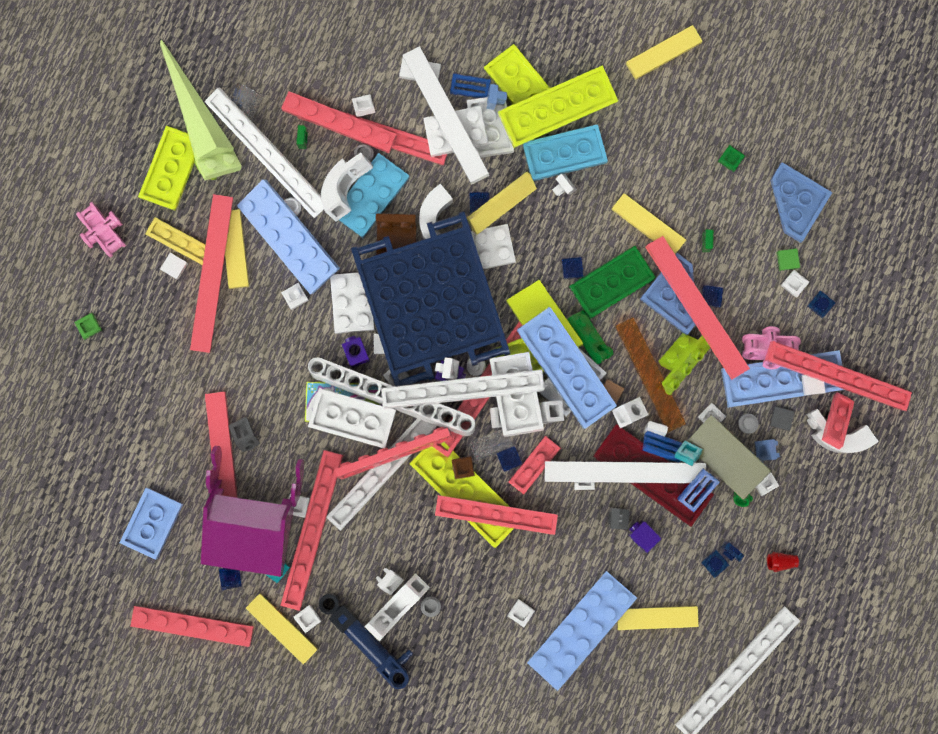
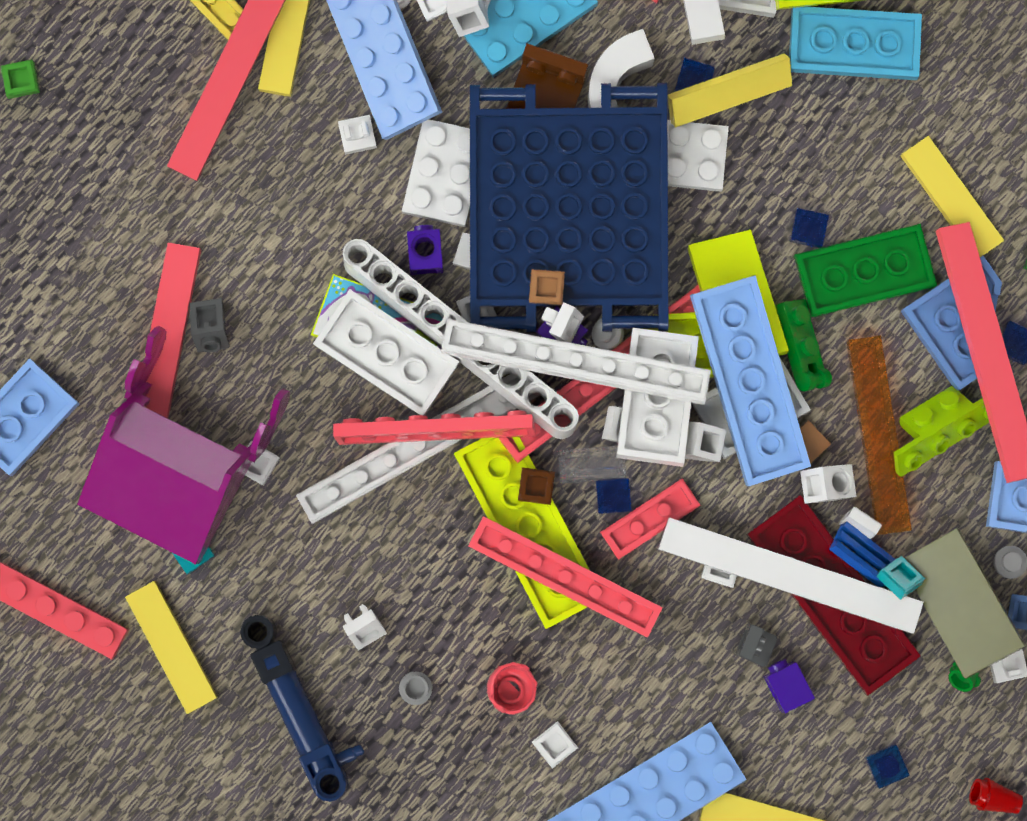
camera: 15 degrees right, 0 degrees up
(174, 266) = (183, 27): white tile -> none
(229, 578) = (115, 542): clear blue plate -> none
(307, 618) = (216, 644): white tile -> none
(311, 531) = (266, 509): coral tile -> none
(397, 607) = (363, 671): white arch -> none
(432, 351) = (546, 287): none -> medium nougat tile
(484, 594) = (505, 695): none -> coral hair
(565, 185) = (838, 94): white tile -> none
(693, 484) = (897, 640): tile -> none
(711, 410) = (957, 521): white tile -> none
(731, 552) = (919, 756): clear blue plate -> none

